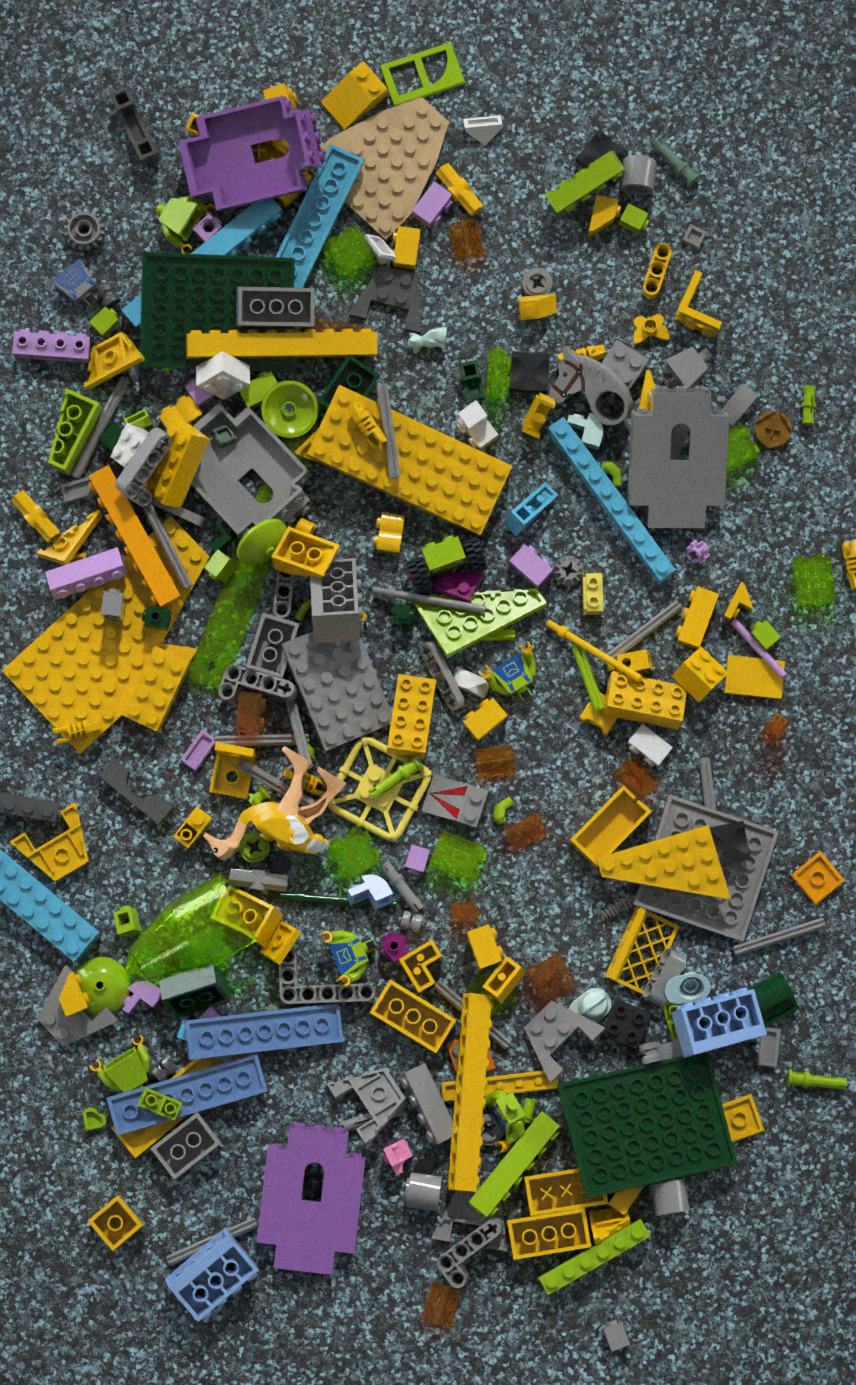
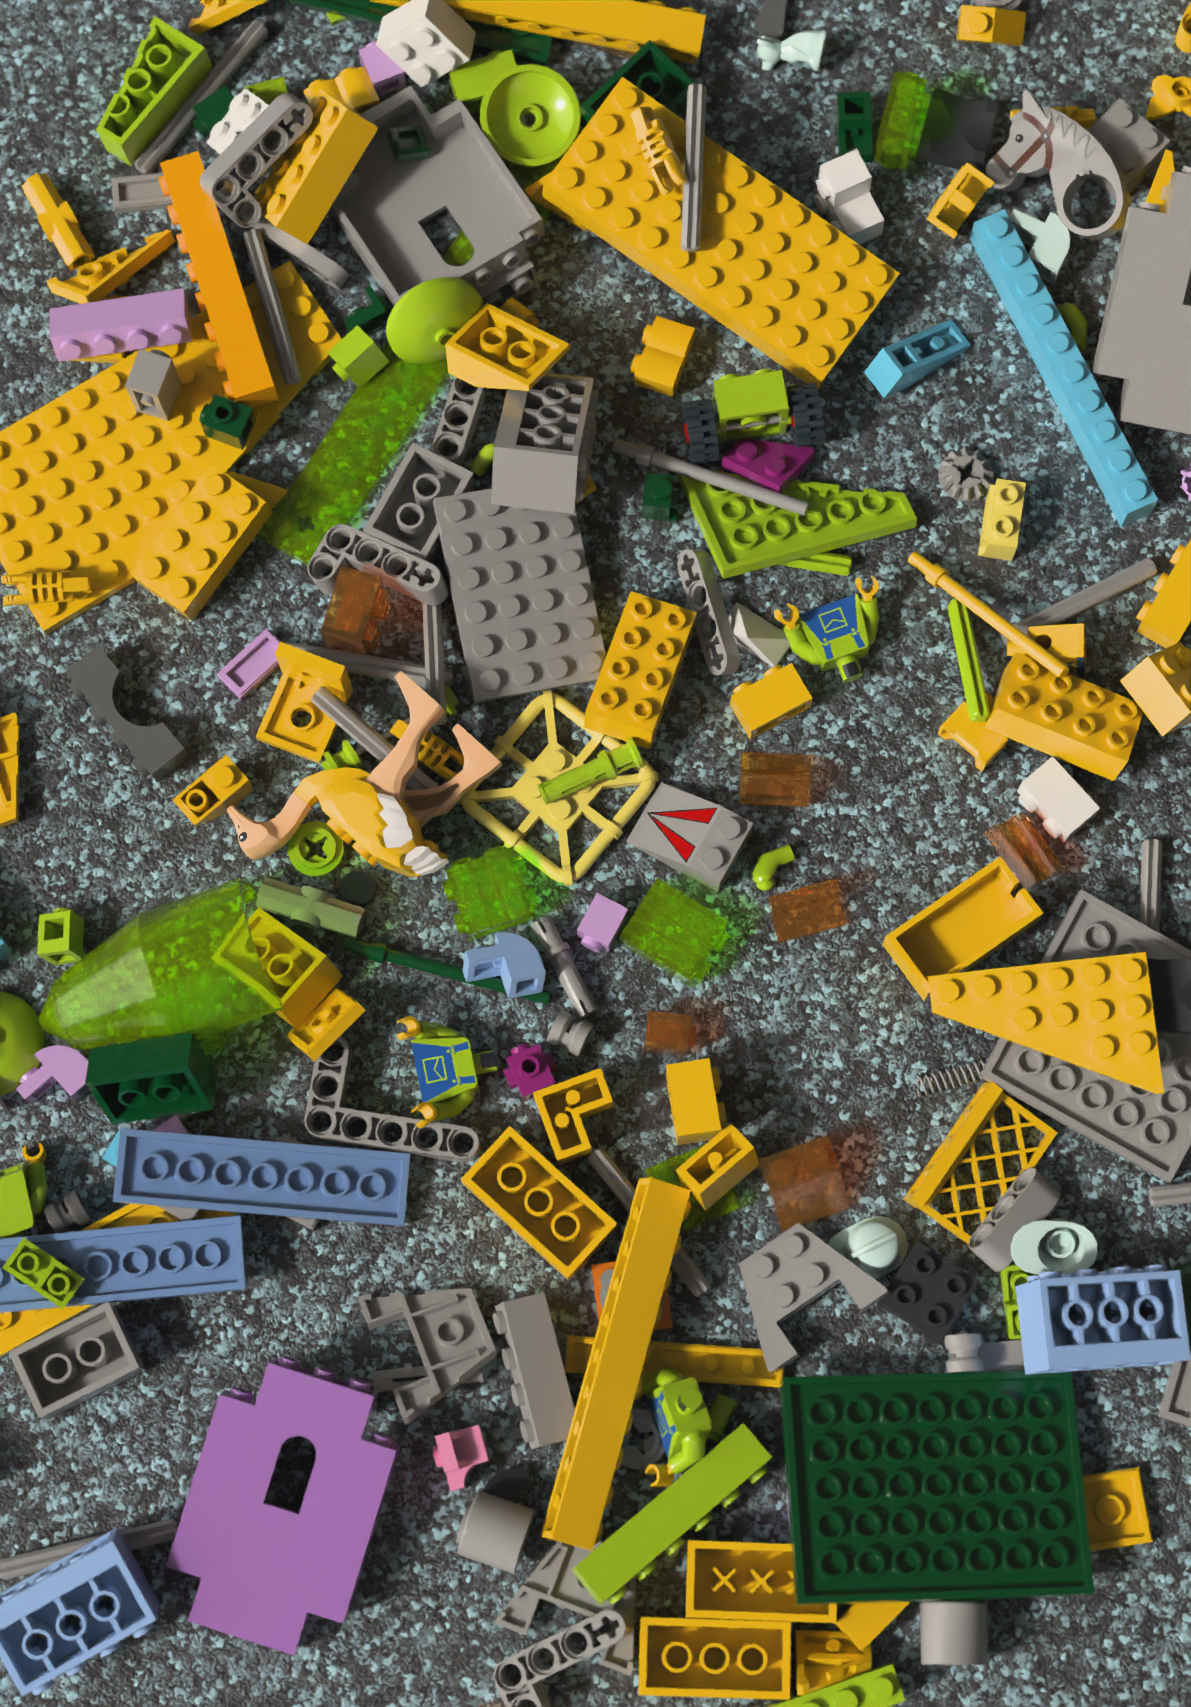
camera: 15 degrees right, 5 degrees down
(531, 565) = (901, 453): lavender brick -> none

